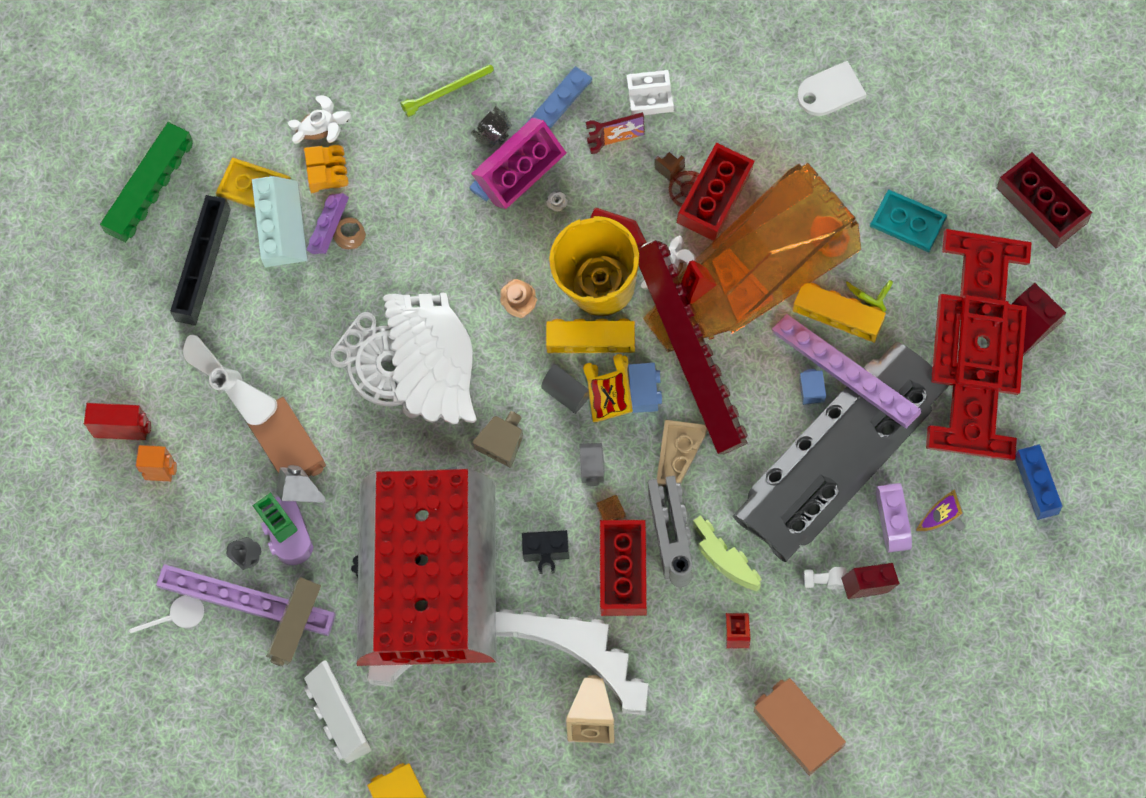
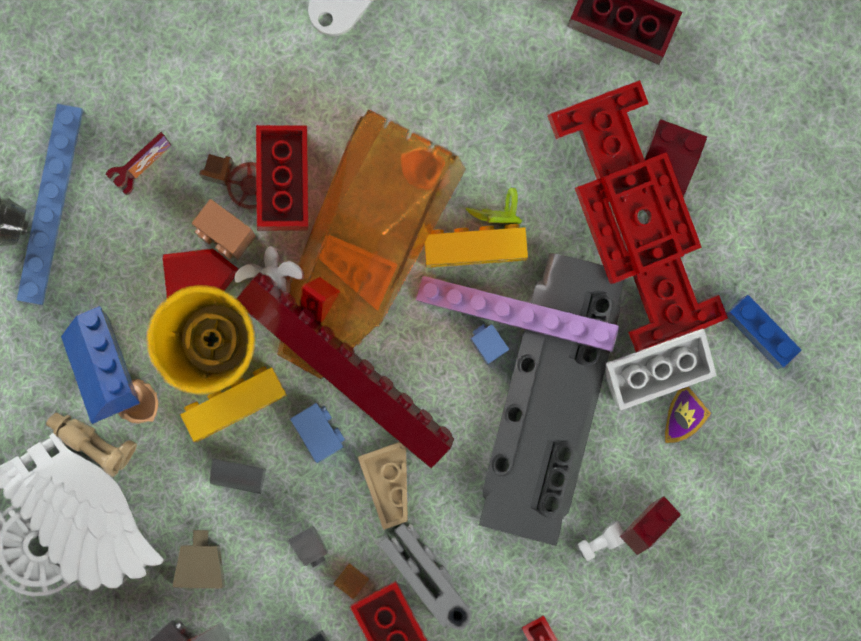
camera: 40 degrees left, 15 degrees up
(464, 305) = (83, 438): none -> tan piece
(505, 257) = (98, 365): none -> blue slope
(519, 163) = (56, 250): dark pink brick -> none
(557, 196) = (120, 275): white plate -> none
(609, 392) = (284, 456): yellow flag -> none
(650, 92) = (153, 95): white slope -> none
(651, 207) = (223, 229): none -> nougat brick
(729, 563) = (501, 576): yellowish green slope -> none
(894, 517) = (640, 445): lavender brick -> none
(908, 220) = (495, 108): teal tile -> none
(939, 464) = (660, 369): none -> white slope

